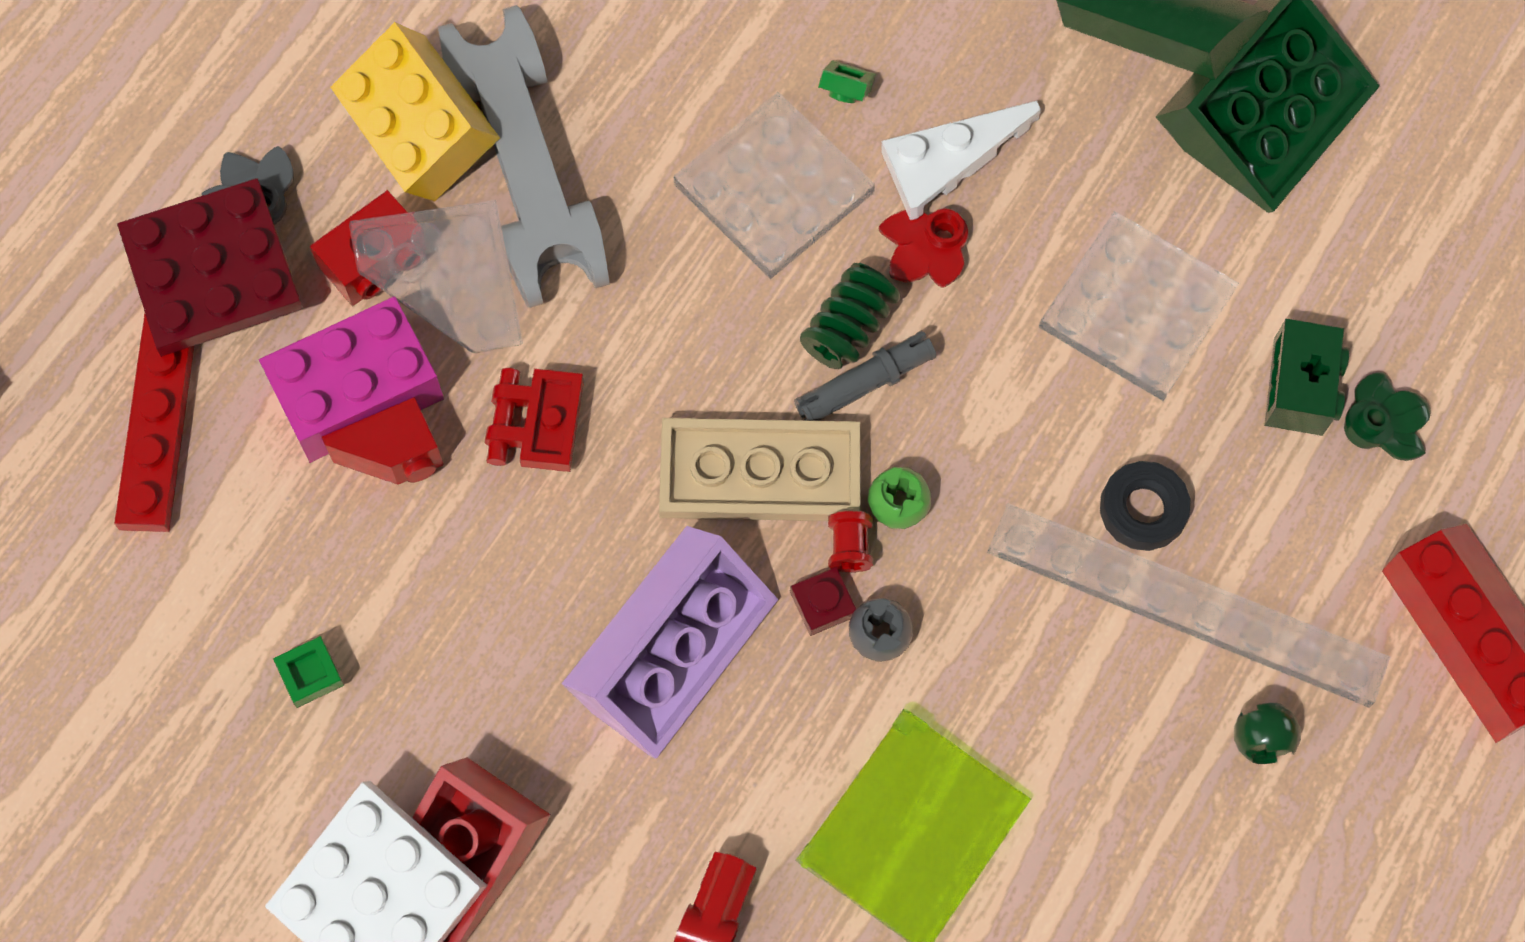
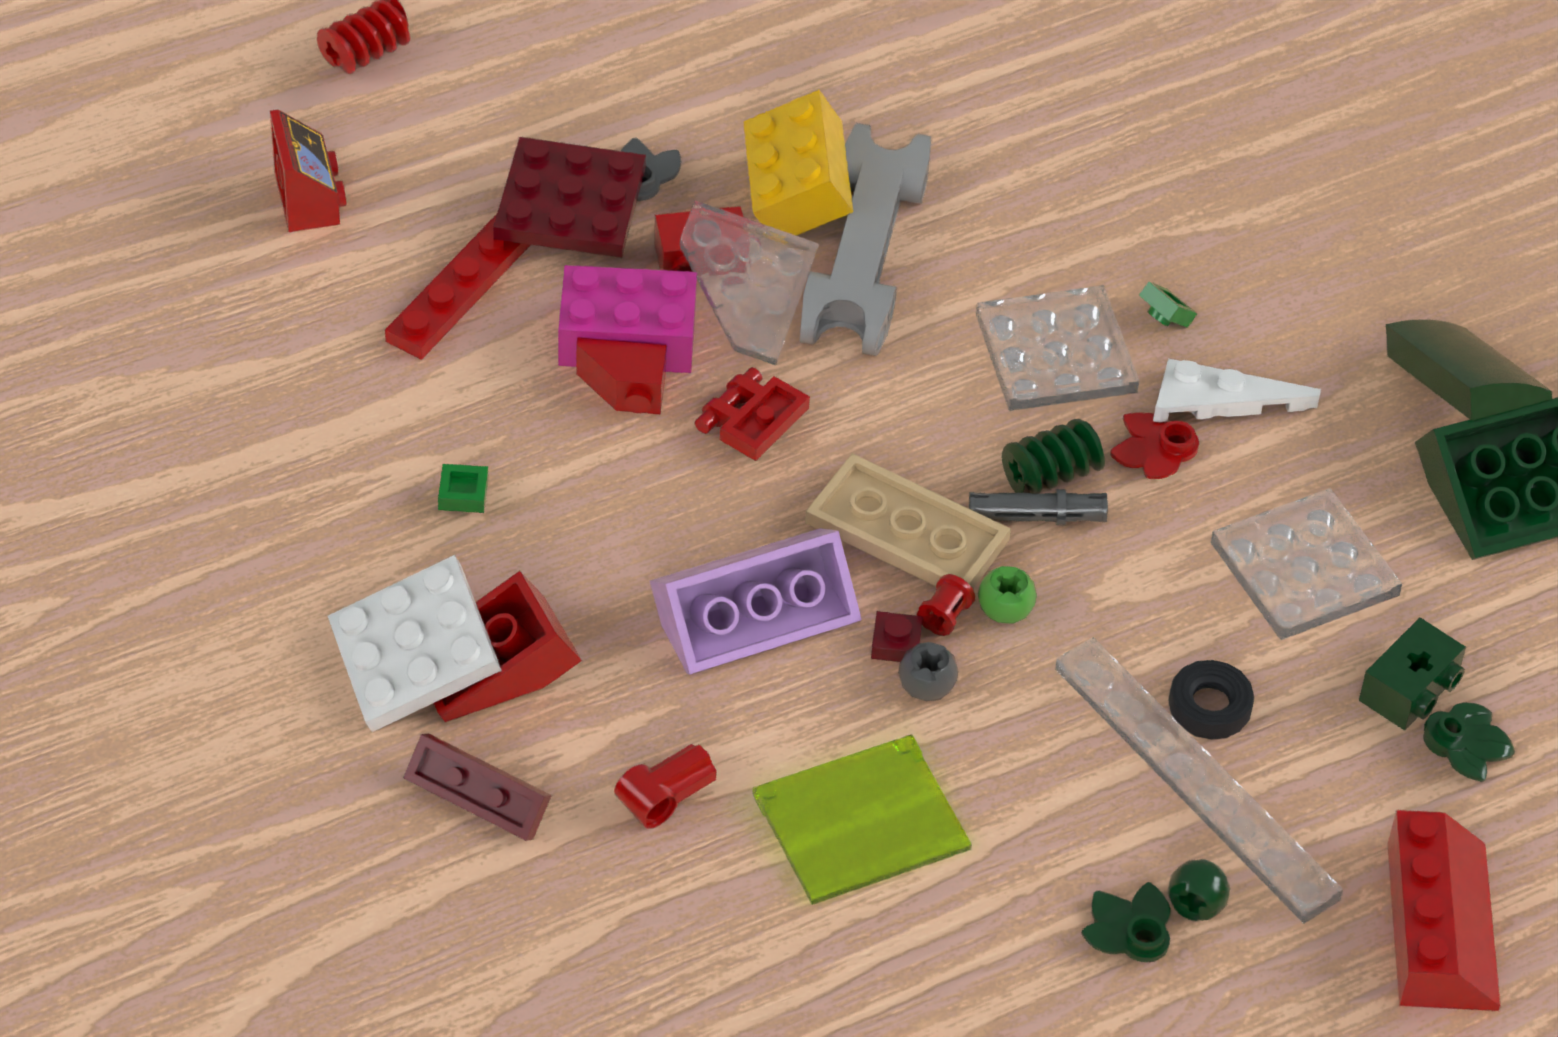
camera: 30 degrees right, 20 degrees down
(1216, 802) = (1123, 923): none -> dark green plate

